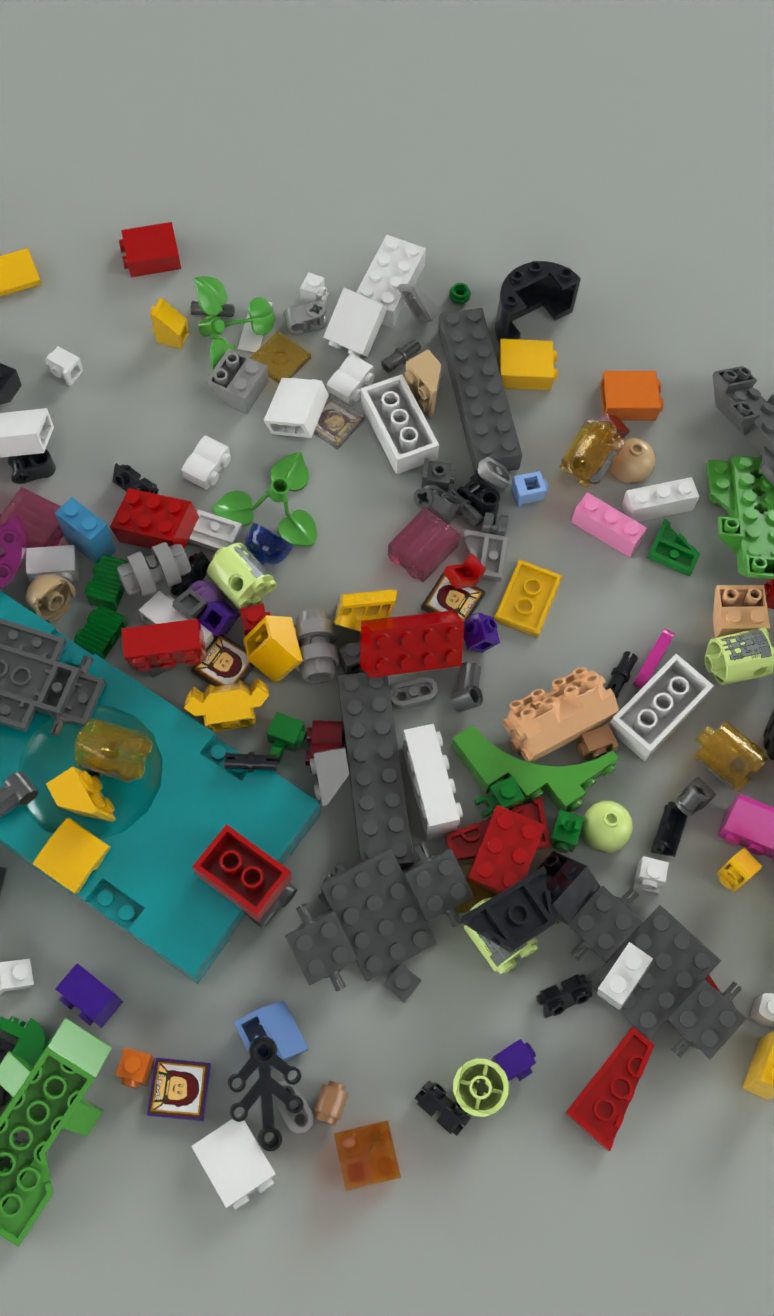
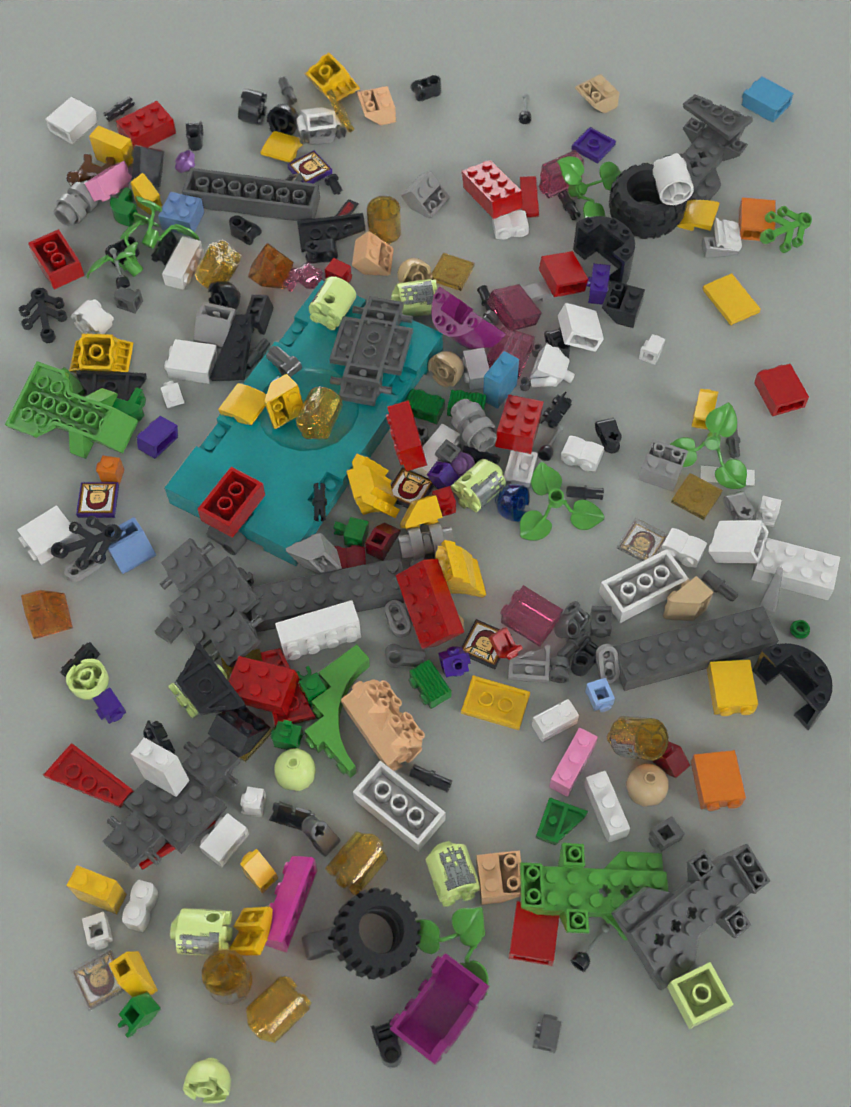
camera: 90 degrees right, 5 degrees down
(70, 478) = (548, 369): none -> white torso
(180, 430) = (608, 434): none -> black piece
(198, 500) = (546, 451): none -> black hinge
(261, 467) = (584, 492): none -> black axle
(296, 407) = (645, 508): white brick -> none
(301, 699) = (381, 540): none -> dark red slope
(330, 1103) = (84, 588): medium nougat brick -> none
(505, 663) = (430, 684): none -> green brick
(558, 536) = (555, 720): none -> white brick
(597, 742) = (364, 758): medium nougat brick -> none
(653, 658) = (450, 804): dark pink beam -> none
(690, 450) = (670, 830): none -> dark grey brick
(698, 912) = (224, 839): none -> white brick

